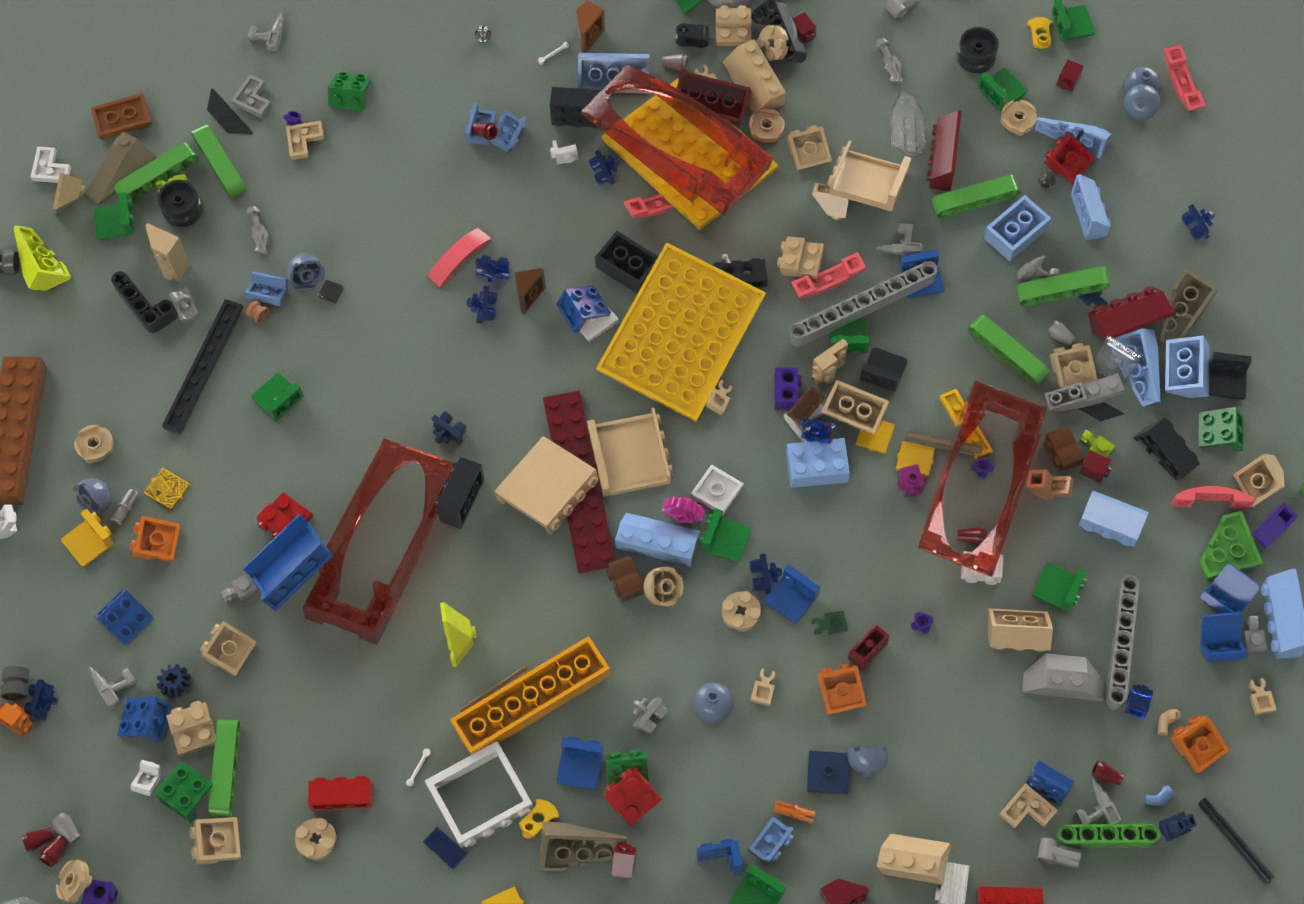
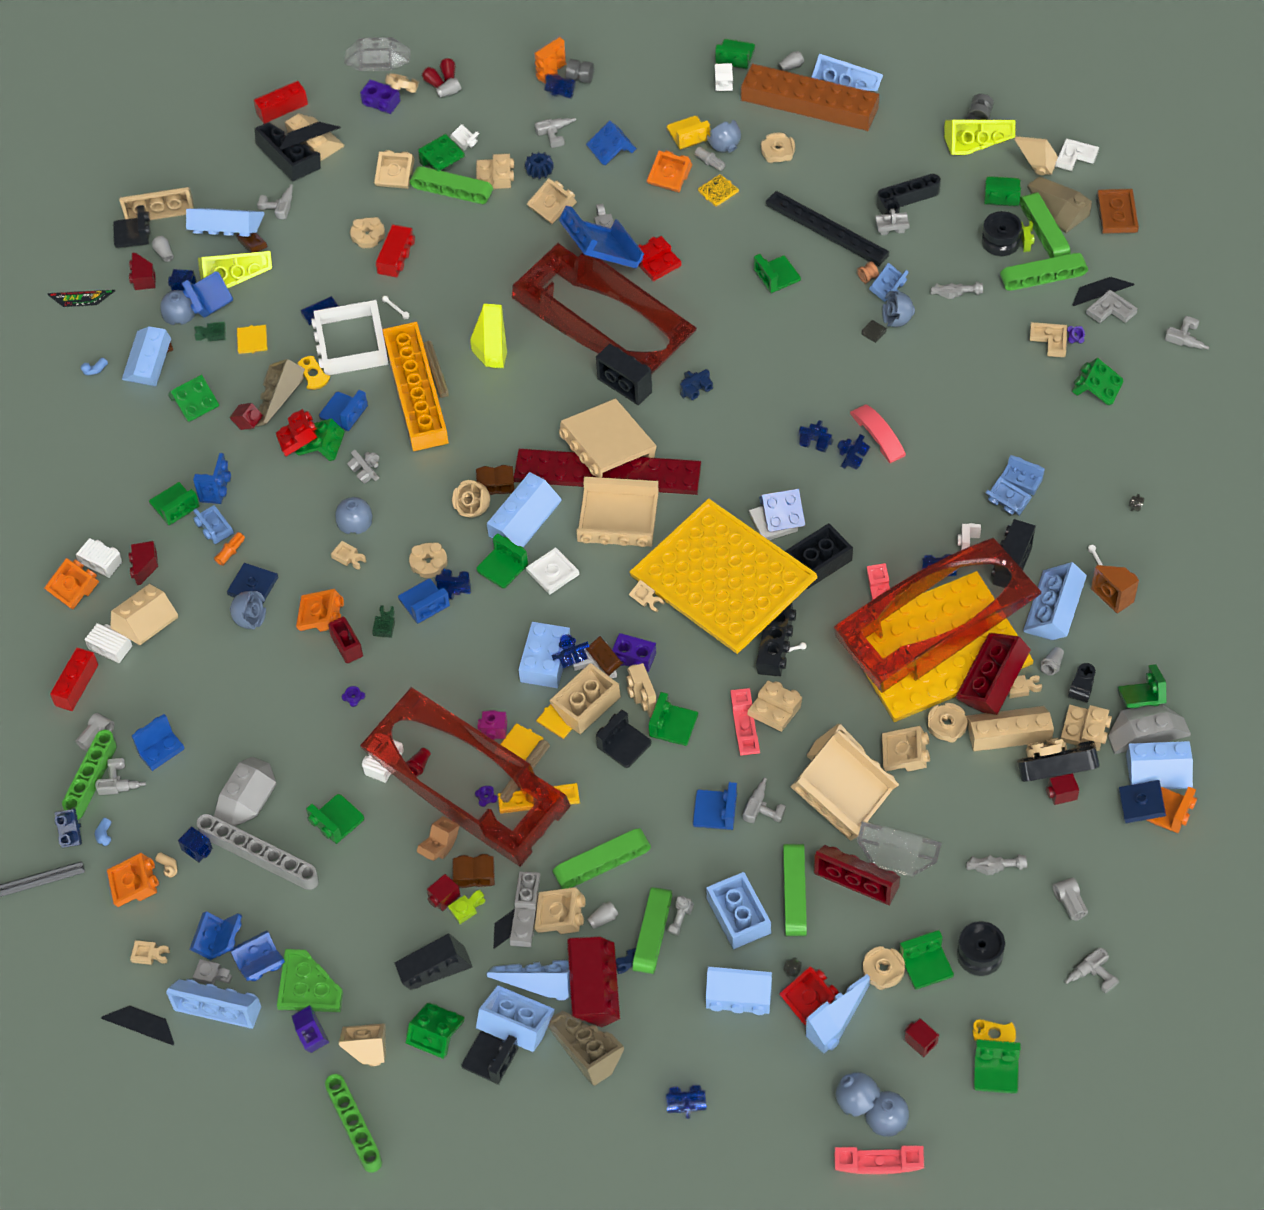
camera: 110 degrees right, 10 degrees down
(145, 718) = (514, 143): blue bracket -> none
(168, 253) = (944, 208): tan slope -> none
(486, 130) = (1006, 470): dark red cone -> none
(529, 287) = (813, 466): reddish brown slope -> none
(683, 510) = (537, 531): dark pink gear -> none
(857, 310) = (699, 747): light grey beam -> none
(1019, 629) = (310, 769): tan slope -> none
(1028, 802) = (147, 712): tan plate -> none
(1104, 772) = (144, 795): dark red cone -> none
(1113, 519) = (379, 884): light blue slope -> none
(1115, 359) = (546, 947): clear plate -> none
(1237, 499) = (353, 1009): coral slope -> none

